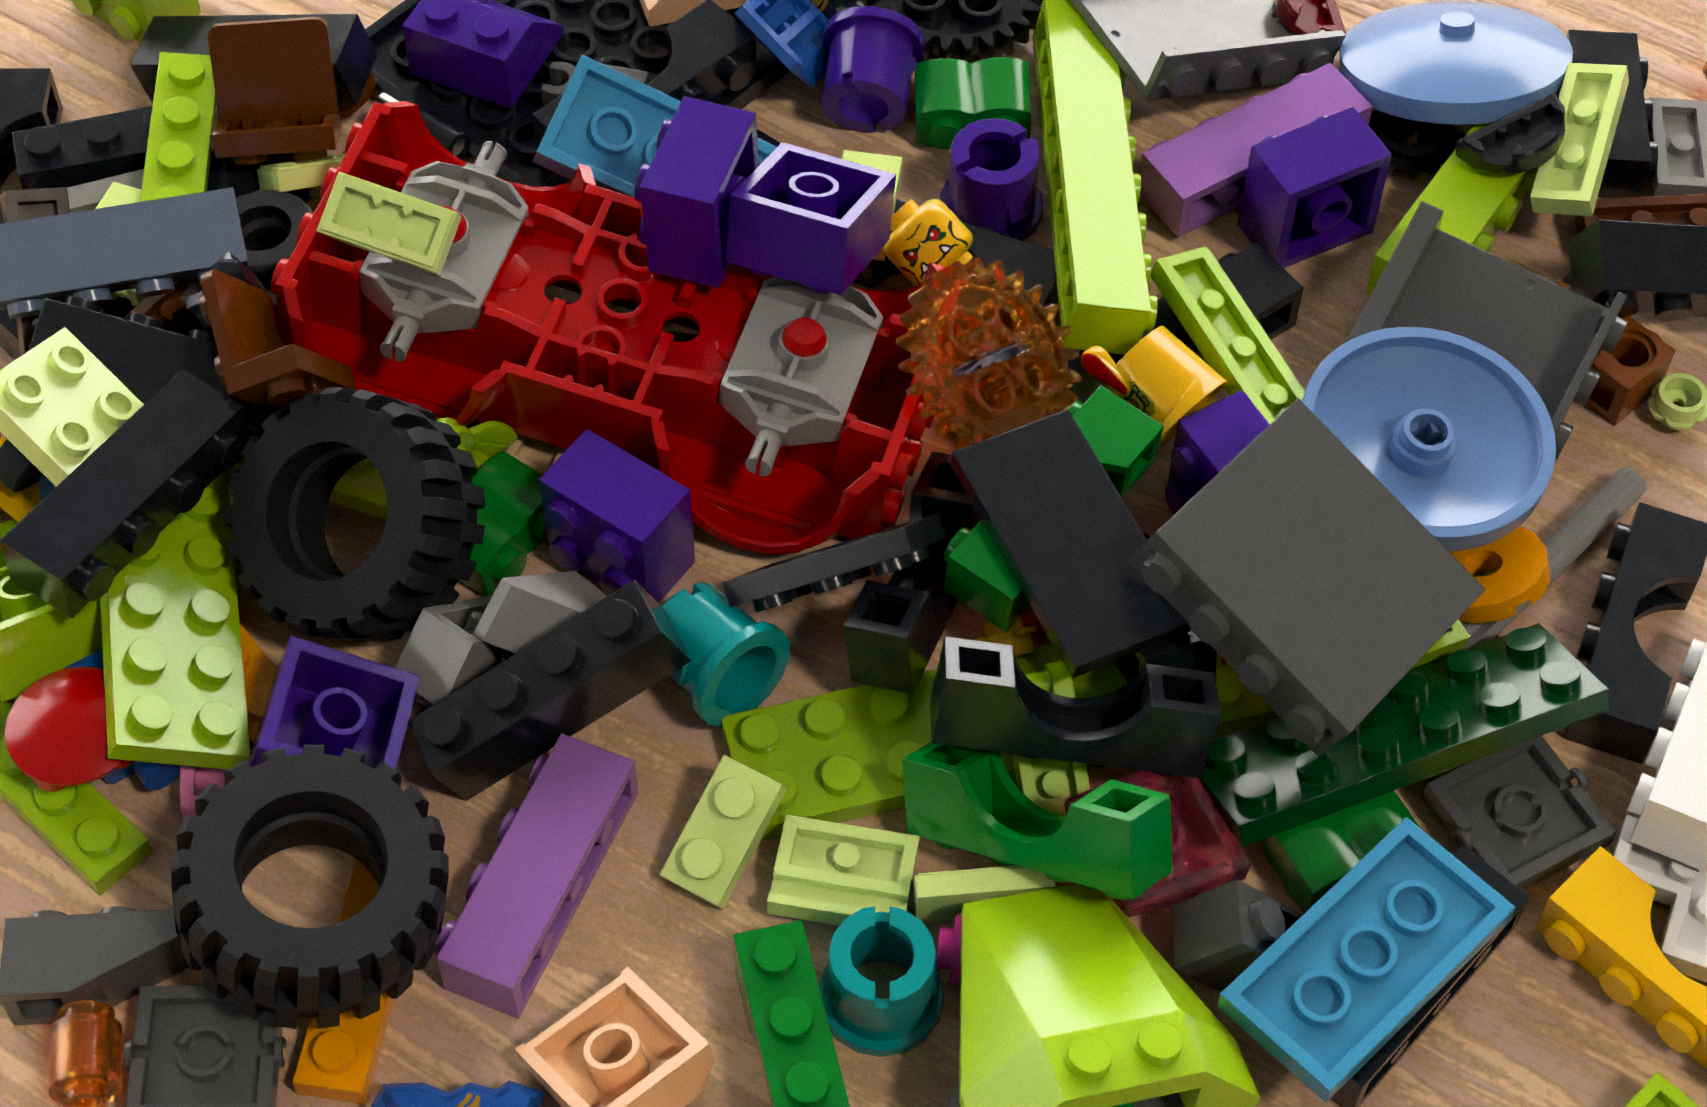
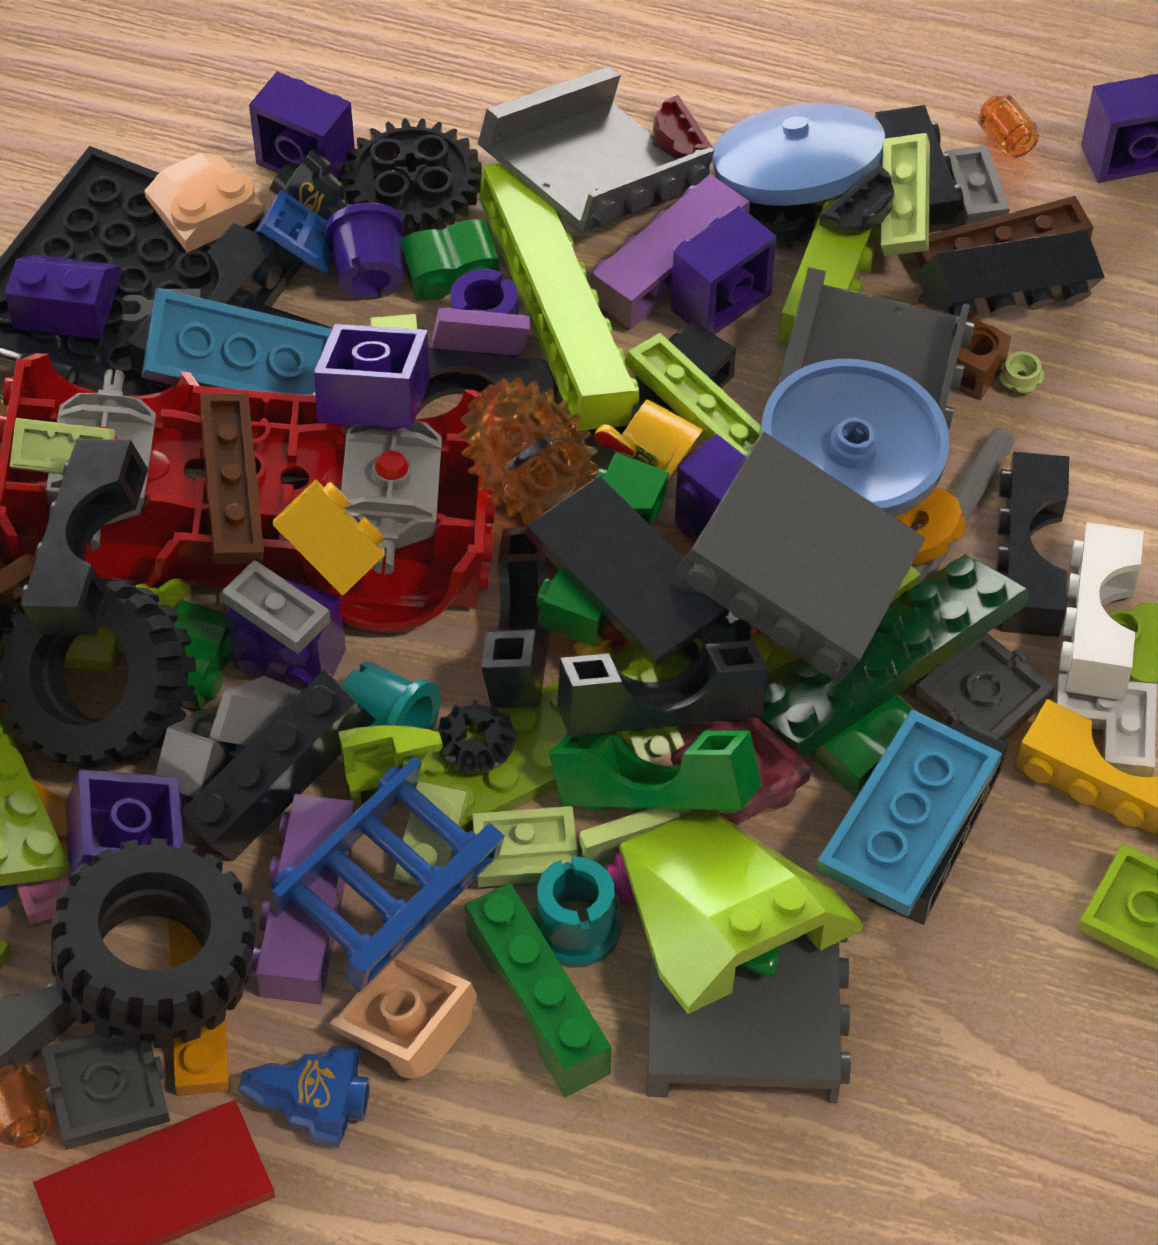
camera: 15 degrees left, 0 degrees up
(409, 278) = (97, 486): none -> black arch
(592, 310) = (231, 478): none -> reddish brown plate
(601, 484) = (276, 606): none -> light grey plate
(644, 935) = (401, 918): none -> blue fence
(686, 721) = (375, 749): none -> lime slope
(688, 189) = (282, 373): dark purple brick -> none
(695, 408) = (330, 535): none -> yellow brick
(801, 734) = (470, 754): none -> black gear
(836, 564) = (459, 625): black plate -> none
(926, 236) = (453, 371): yellow head -> none
(980, 196) = (480, 331): none -> medium lavender tile
(1226, 931) = (807, 820): dark grey slope -> none

